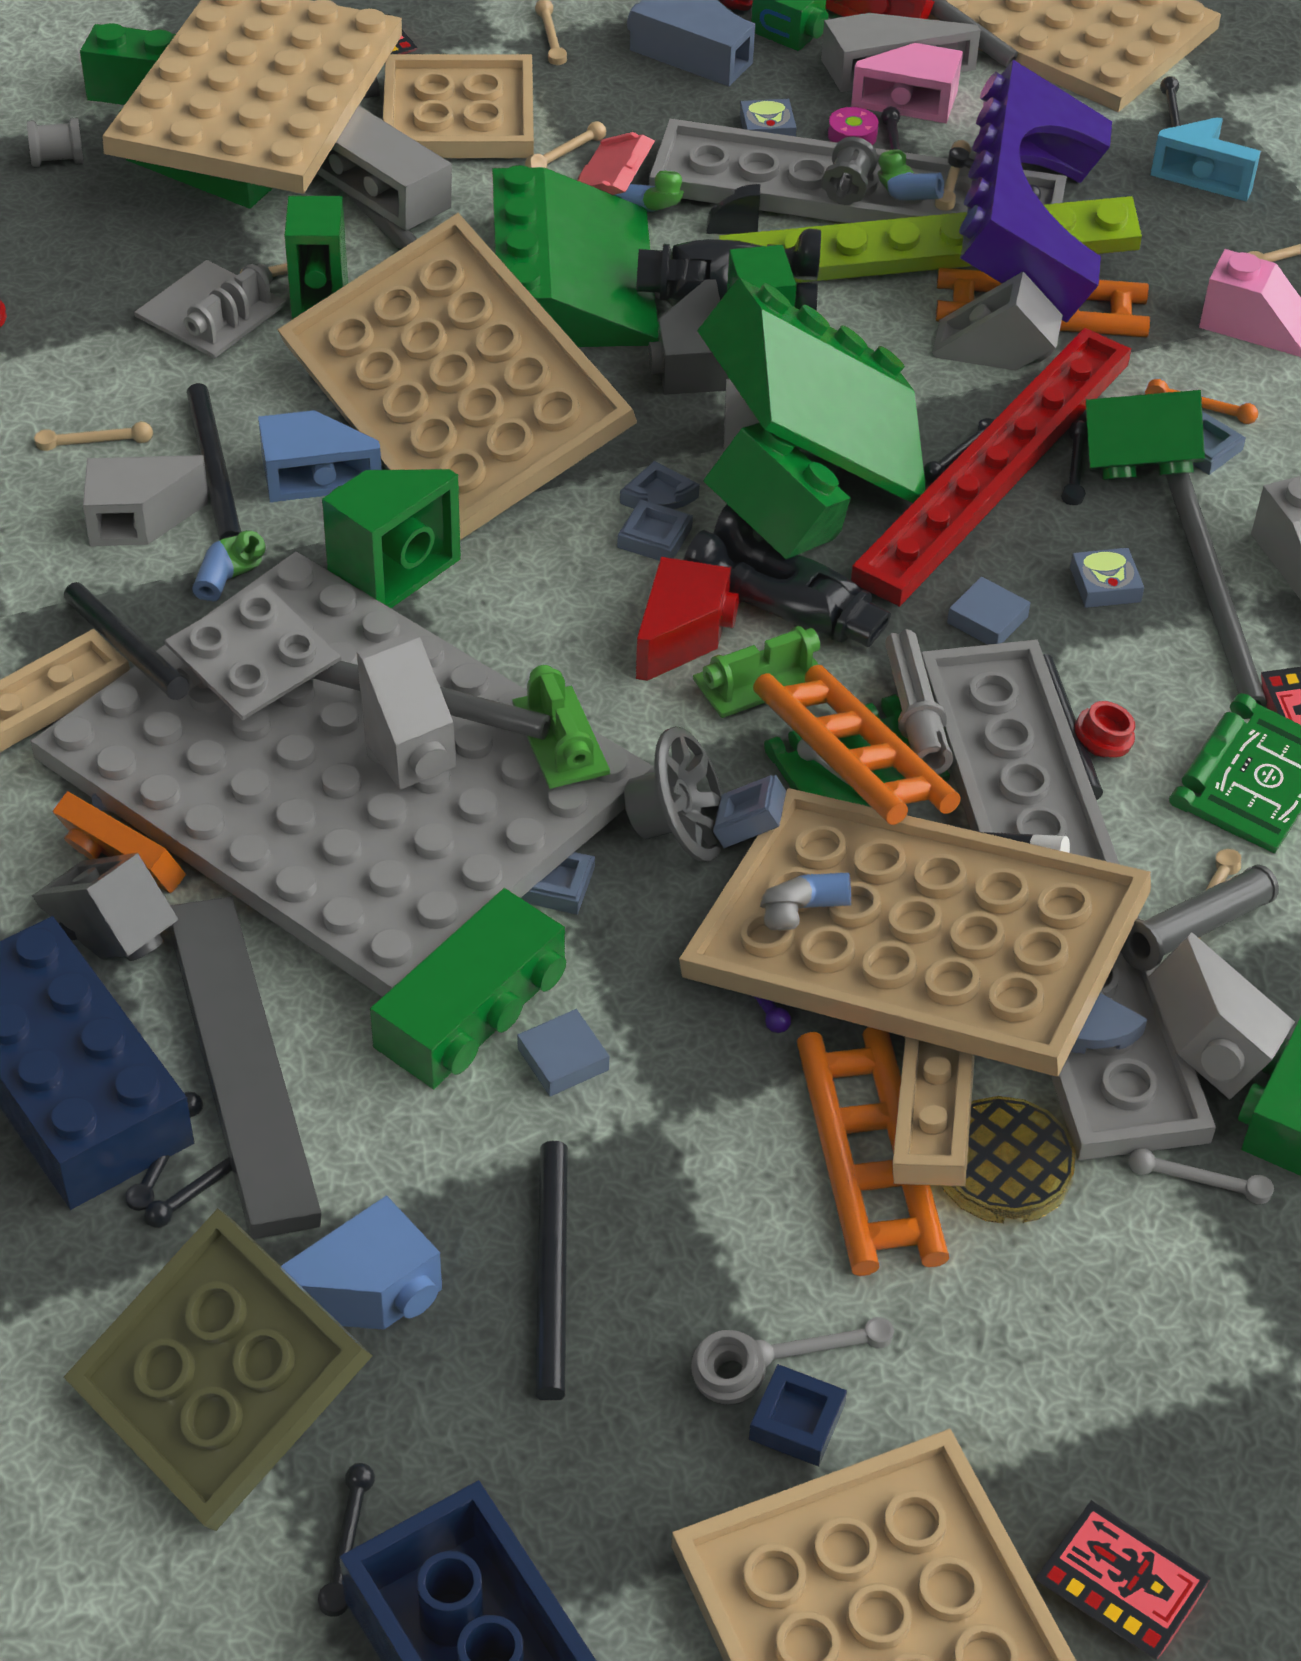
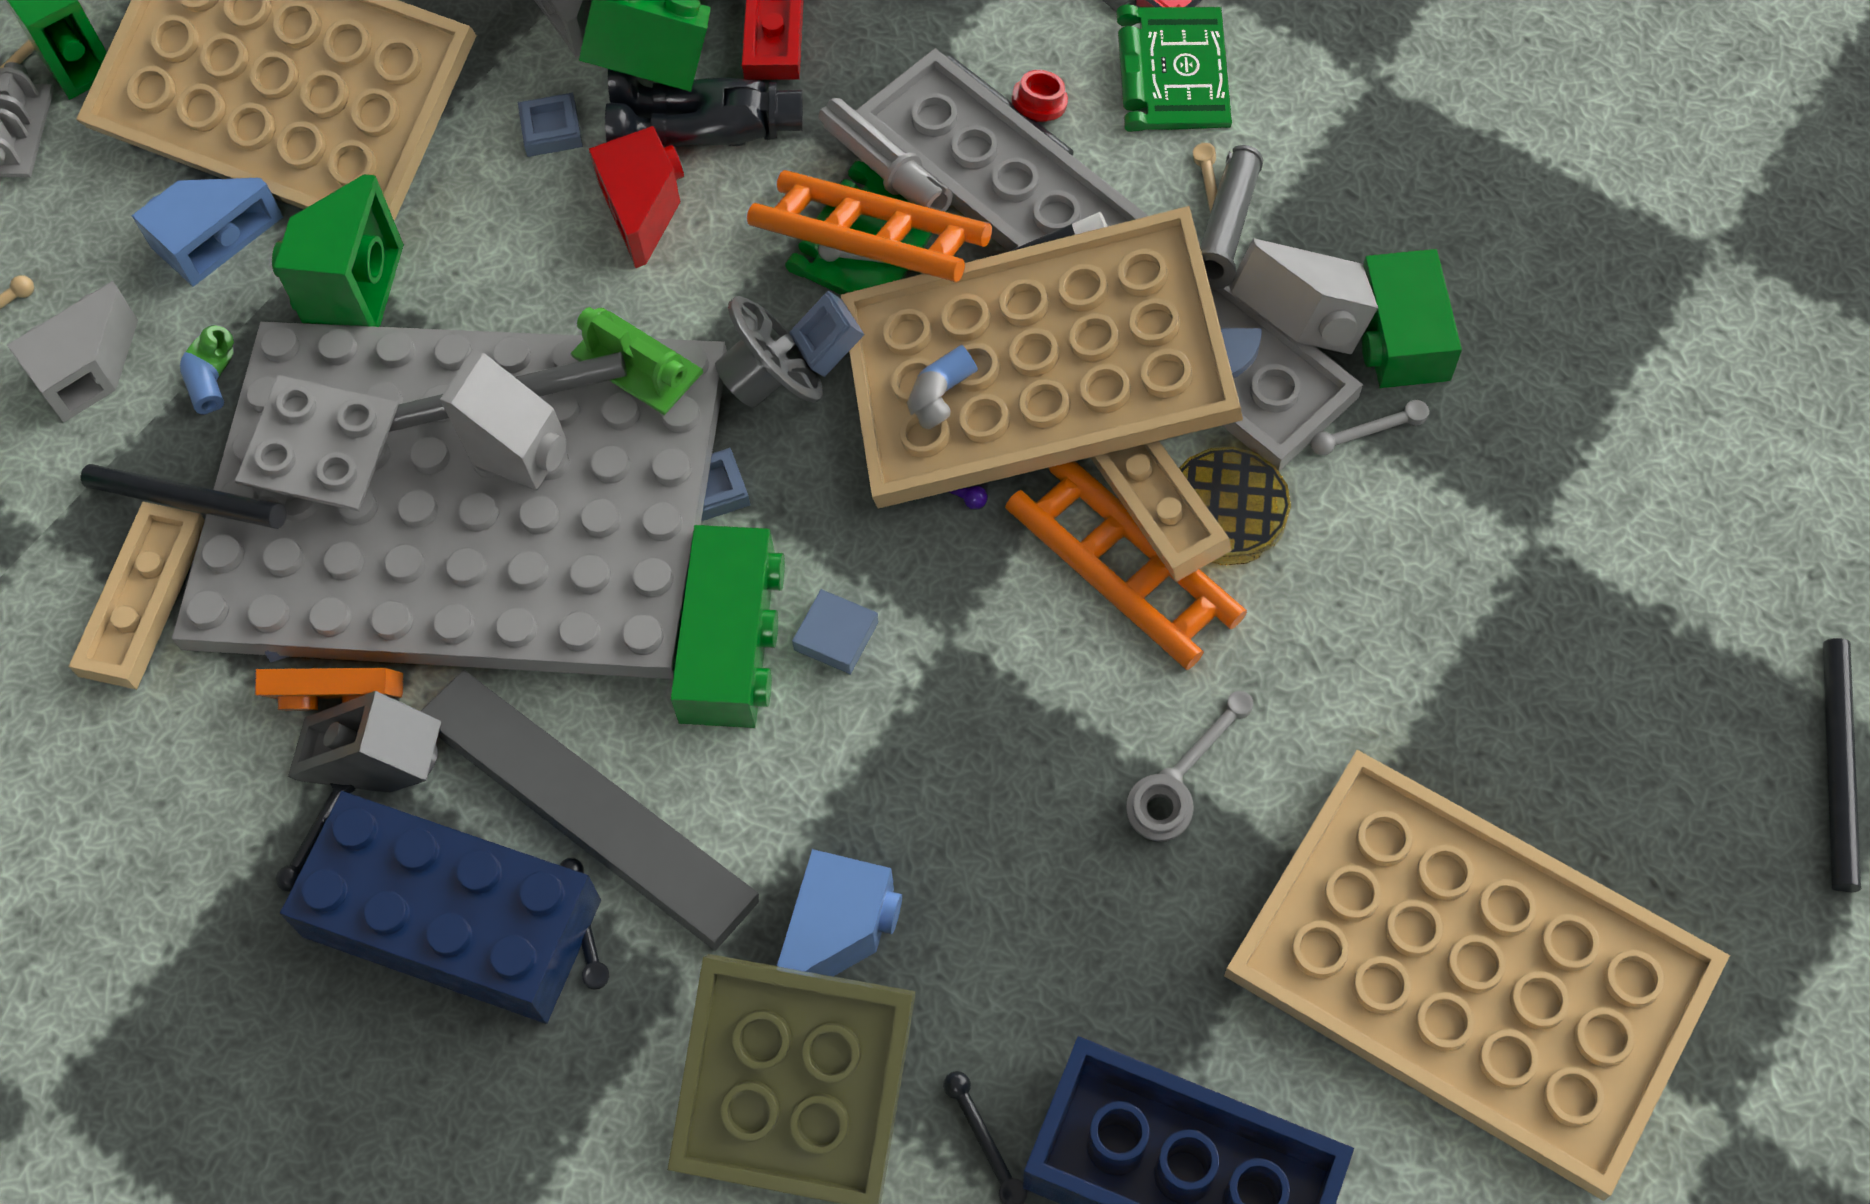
camera: 30 degrees left, 15 degrees up
(160, 1212) = (624, 978): black hinge -> none
(215, 466) = (105, 271): black bar -> none
(552, 1272) = (968, 818): black bar -> none
(660, 486) = (523, 81): sand blue tile -> none
(731, 677) = (723, 223): bright green hinge -> none
(797, 1415) = (1239, 811): dark blue plate -> none
(988, 612) = (872, 44): sand blue tile -> none
(1124, 1579) = (1545, 780): piece -> none

